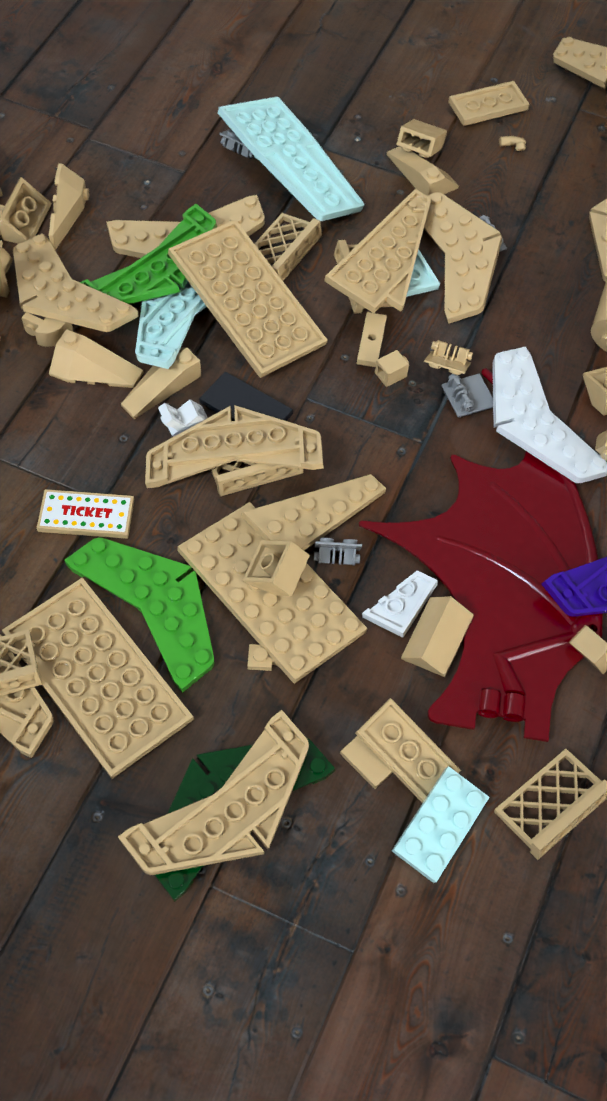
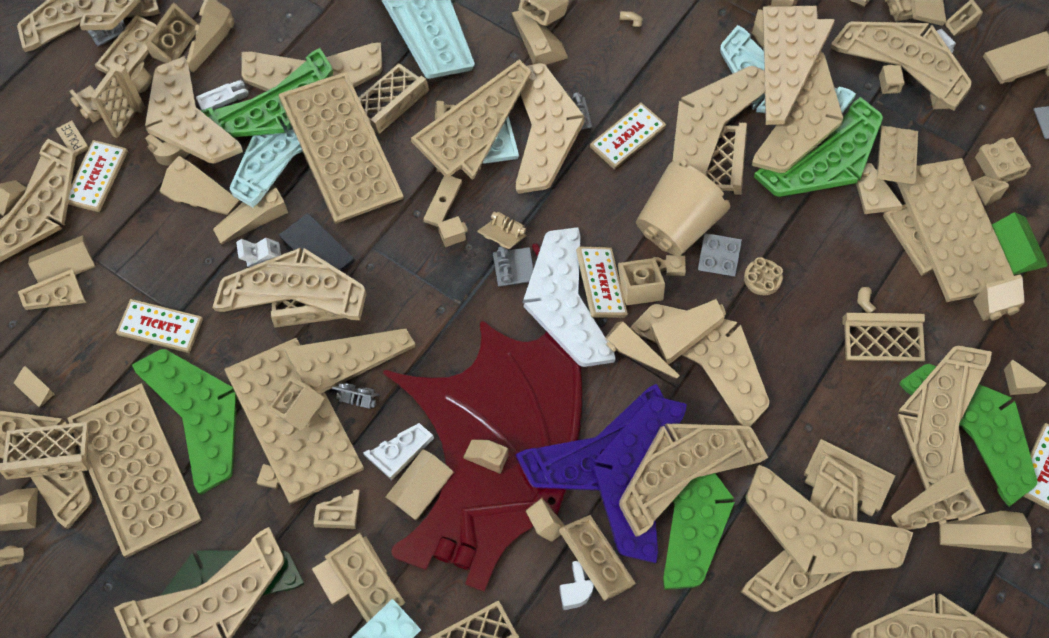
camera: 15 degrees right, 5 degrees up
(96, 266) = (222, 95): none -> white hinge
(353, 683) = (338, 513): none -> tan wing
(507, 589) = (487, 454): none -> tan slope
(546, 252) = (627, 136): none -> tile
(570, 396) = (601, 282): none -> tile

